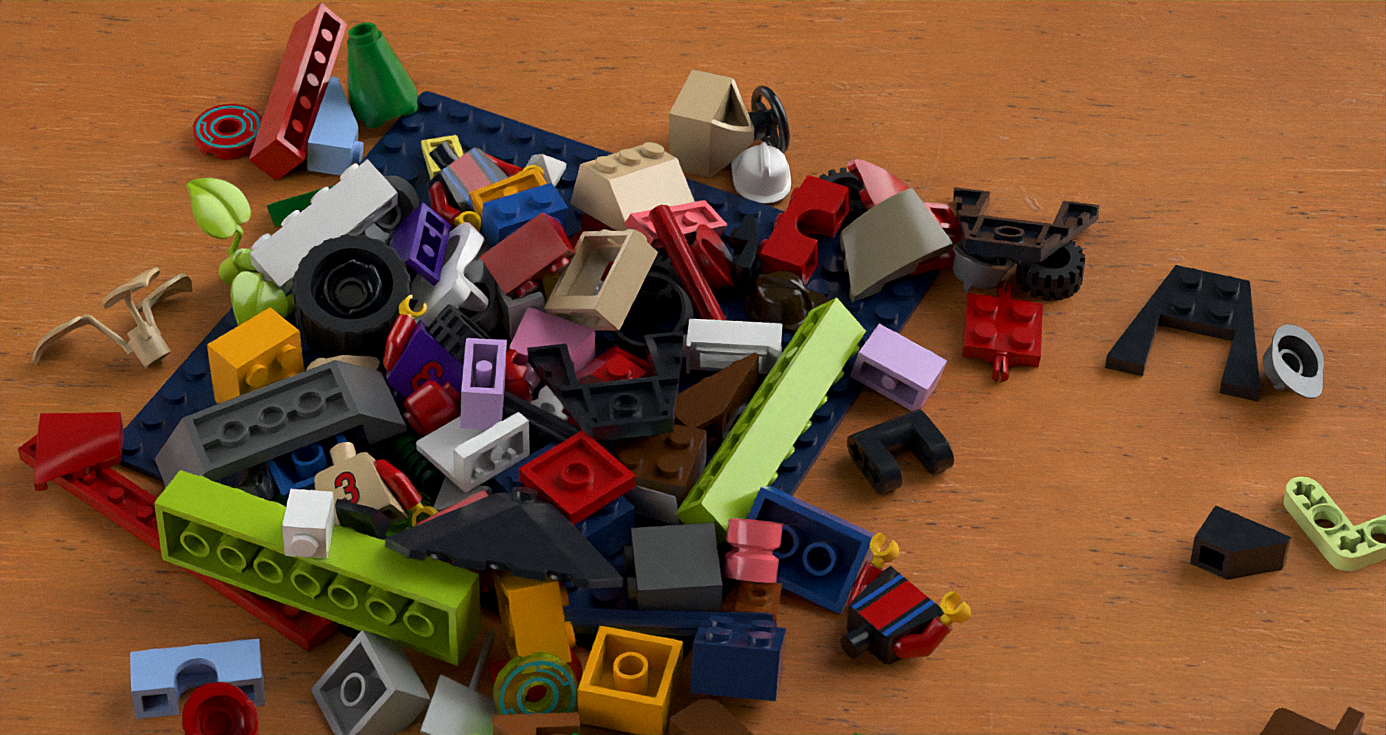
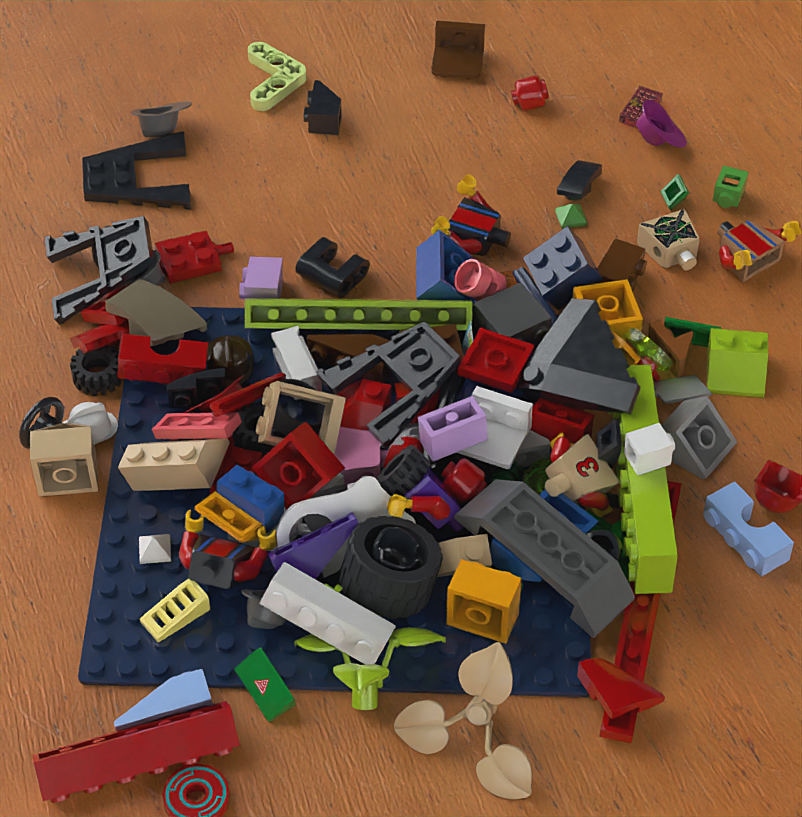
camera: 115 degrees left, 5 degrees up
(376, 78) = (111, 688): green cone -> none

